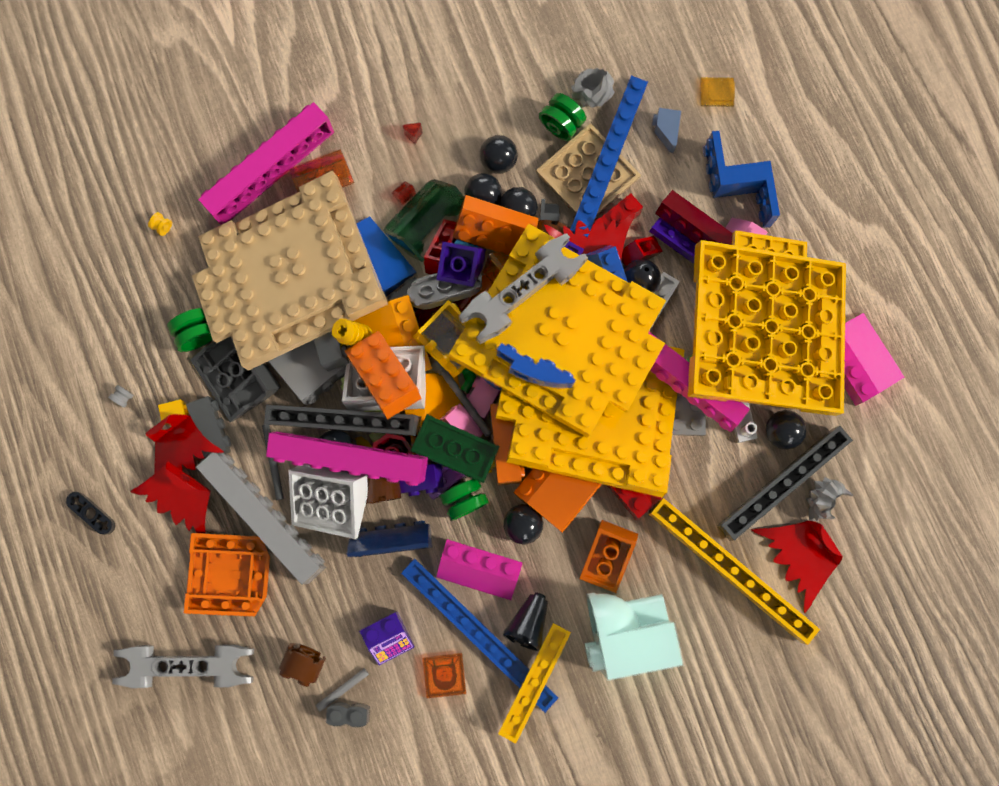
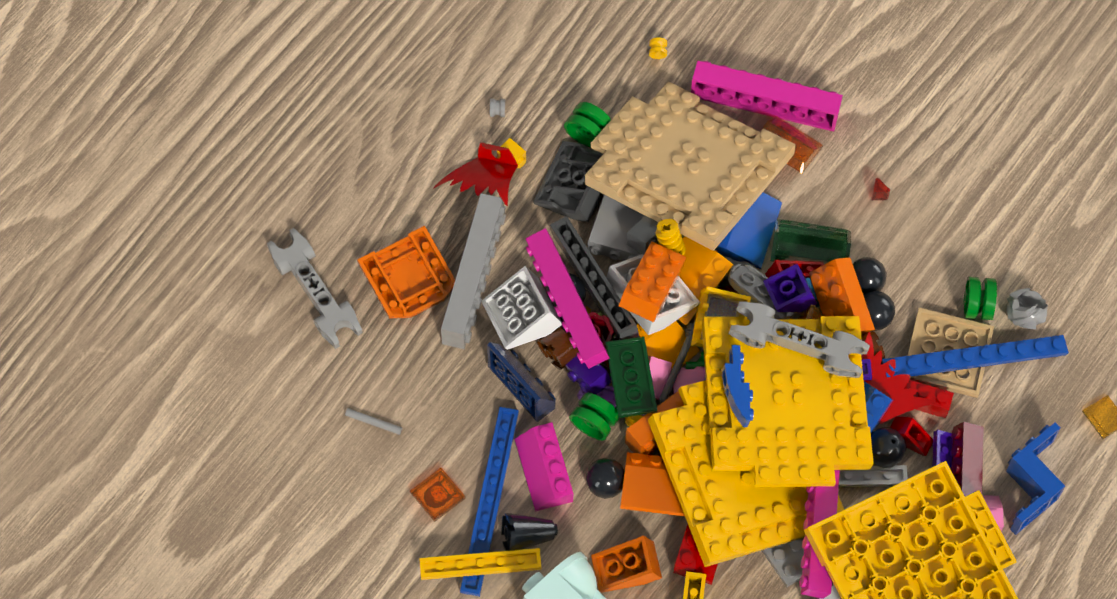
camera: 55 degrees right, 15 degrees down
(82, 514) = (385, 138): black beam -> none
(179, 494) = (448, 198): red piece -> none
(206, 418) = (522, 184): dark grey brick -> none
(273, 466) = (514, 262): dark grey bar -> none
(301, 664) = (375, 373): reddish brown brick -> none
(342, 713) = (357, 435): dark grey brick -> none
(387, 638) = (439, 428): dark purple slope -> none
(404, 192) = (822, 217): clear red slope -> none
(498, 154) = (909, 268): black piece -> none
(549, 212) = (890, 341): dark grey panel -> none
(667, 127) = (1039, 392): sand blue slope -> none

